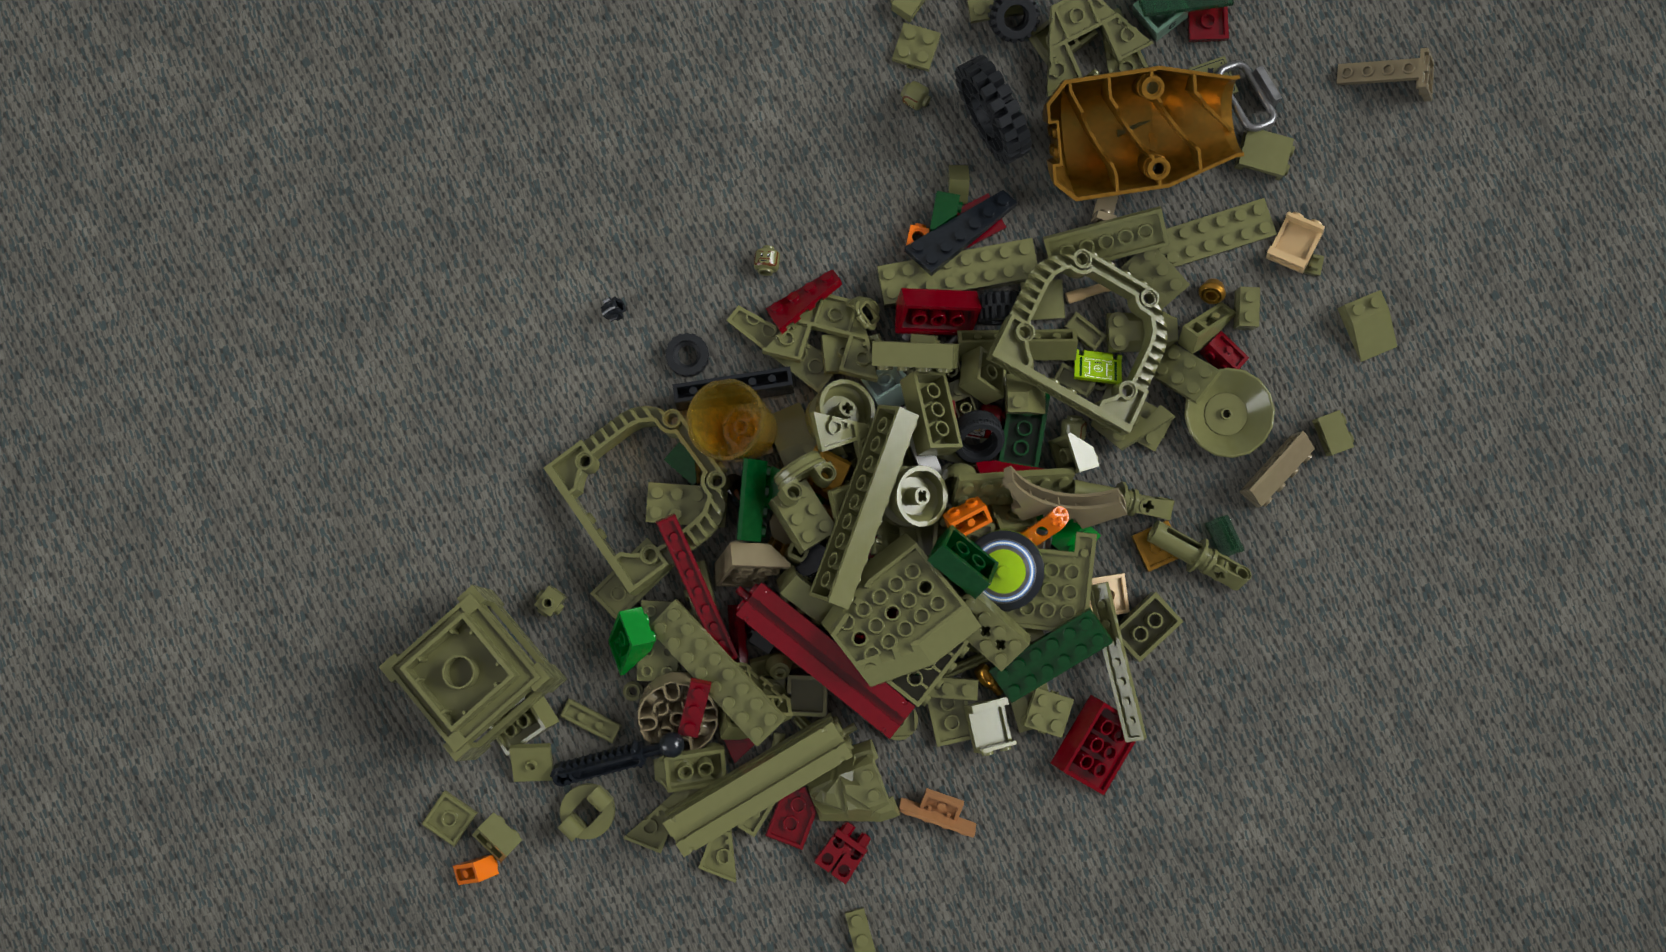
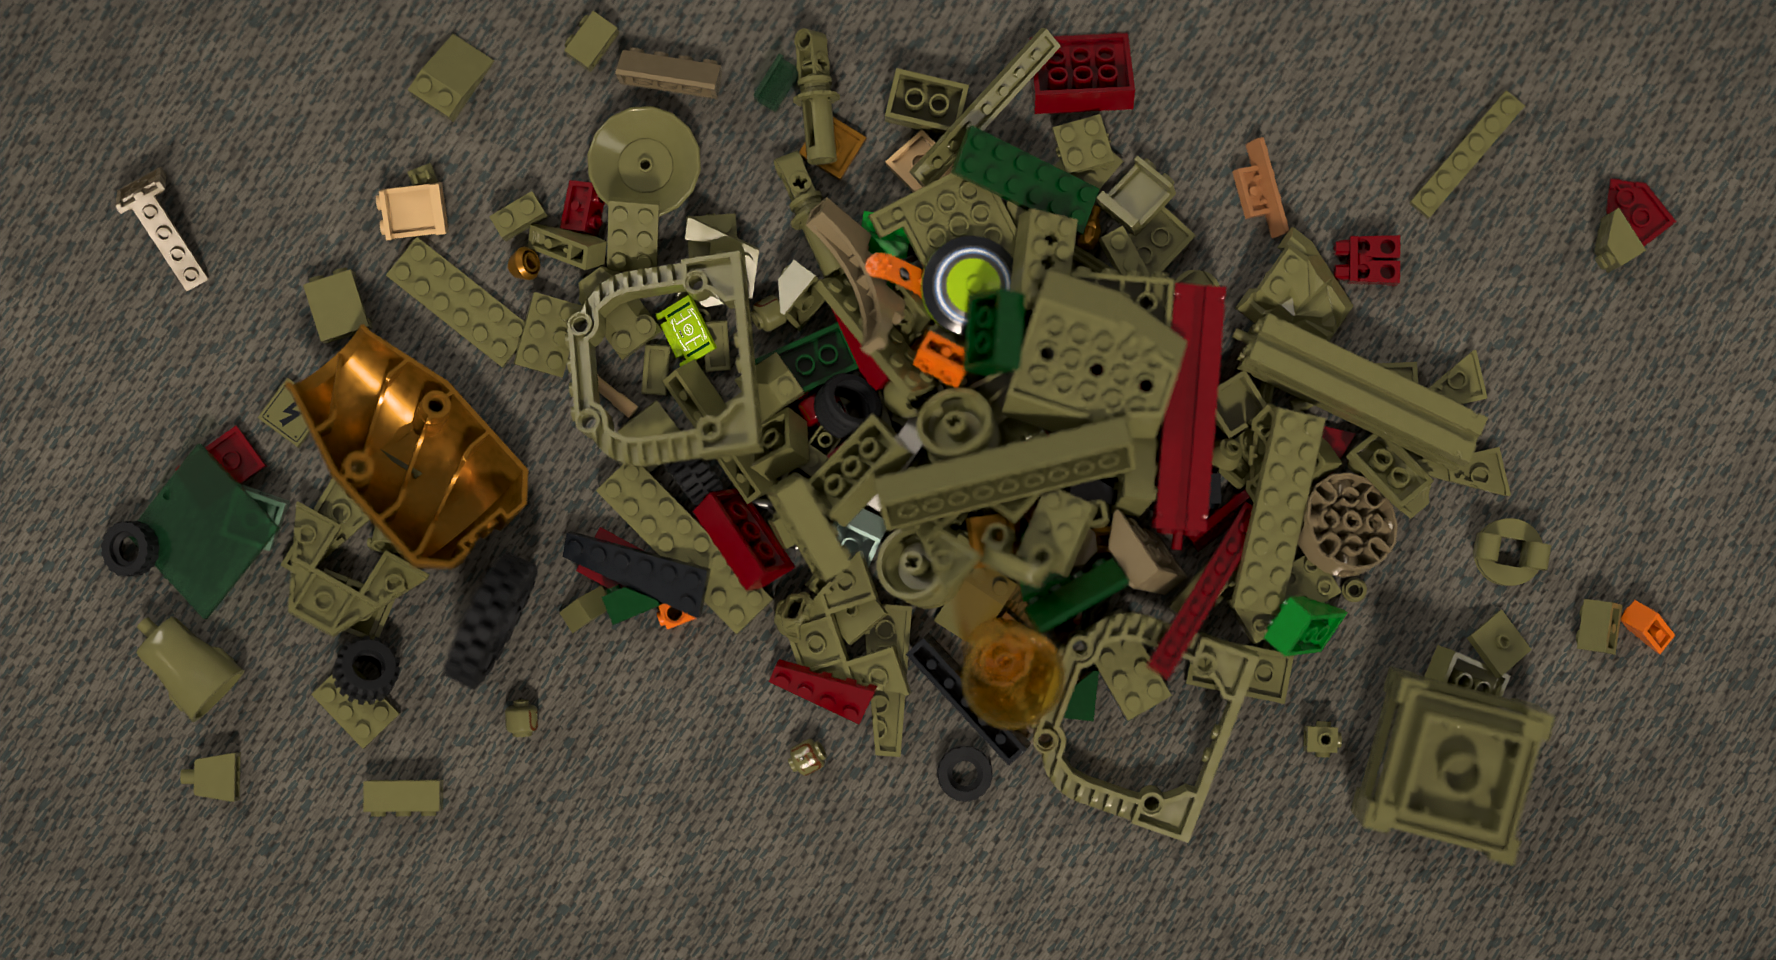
camera: 125 degrees left, 0 degrees up
(449, 818) = (1614, 691): olive tile -> none
(590, 720) = (1414, 613): olive tile -> none
(613, 309) = (969, 886): black gear -> none
(615, 759) = (1438, 558): black gear -> none
(694, 707) = (1329, 510): dark red plate -> none
(792, 819) = (1372, 333): dark red tile -> none
(916, 47) = (466, 754): olive plate -> none
(1104, 209) = (515, 433): dark tan bracket -> none
(1113, 237) = (541, 407): olive plate -> none
(1263, 88) = (268, 352): flat silver bar -> none

